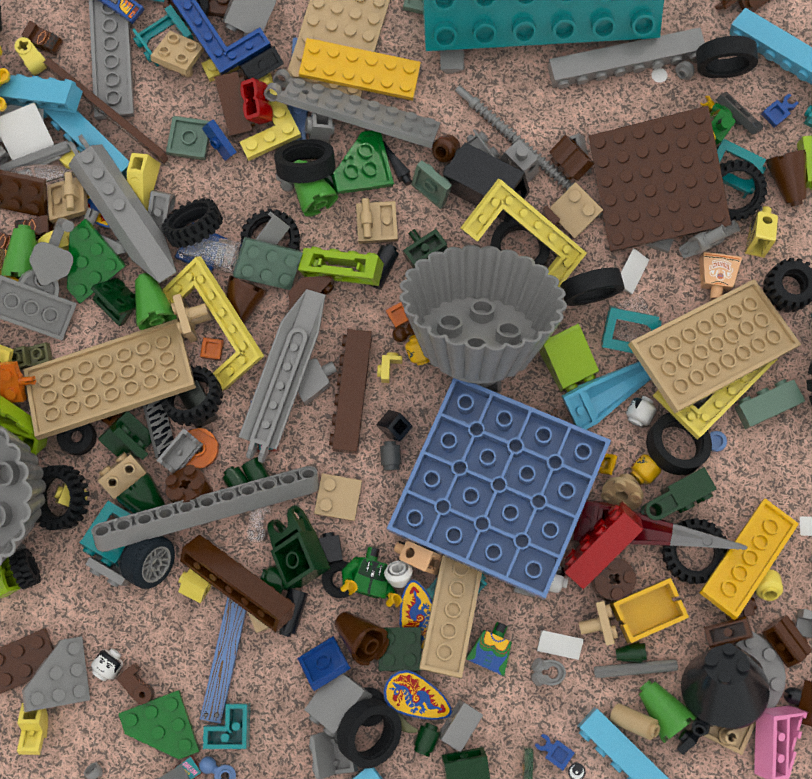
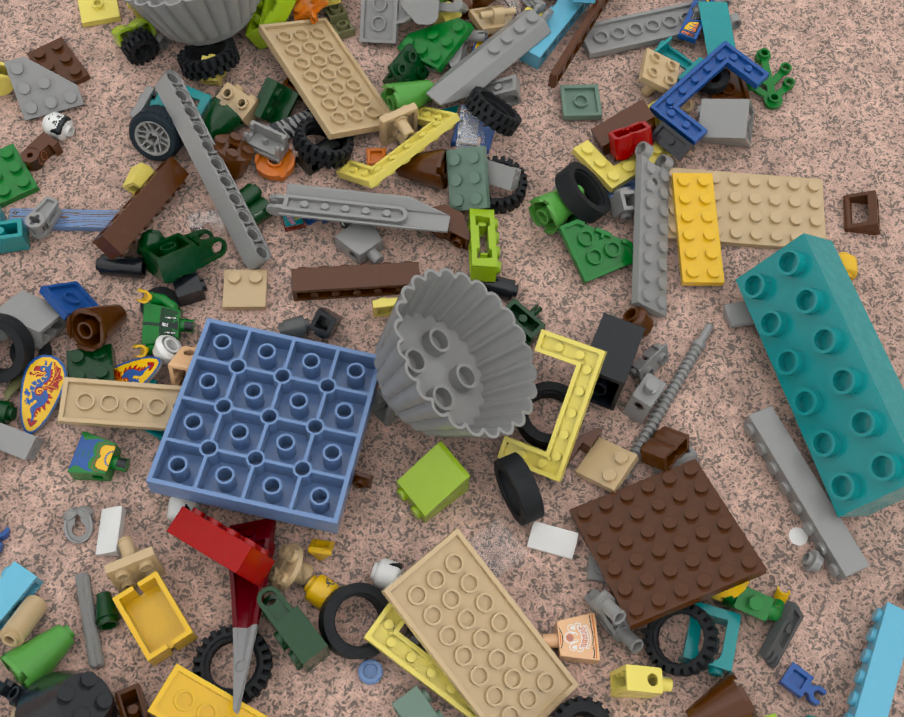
camera: 70 degrees right, 15 degrees down
(81, 447) = (260, 63): black tyre -> none
(142, 176) = (530, 69): light yellow slope -> none
(219, 140) = (583, 121): blue plate -> none
(221, 682) = (45, 216): none -> light grey piece
(376, 222) = (540, 274): tan plate -> none
(400, 169) = (603, 286): black piece -> none
(431, 184) = (592, 314): sand green plate -> none
(600, 396) = (394, 523): medium azure plate -> none
(615, 313) = (493, 522): teal panel -> none
(625, 581) = (187, 586): reddish brown brick -> none
(712, 67) = (857, 612): black tyre -> none

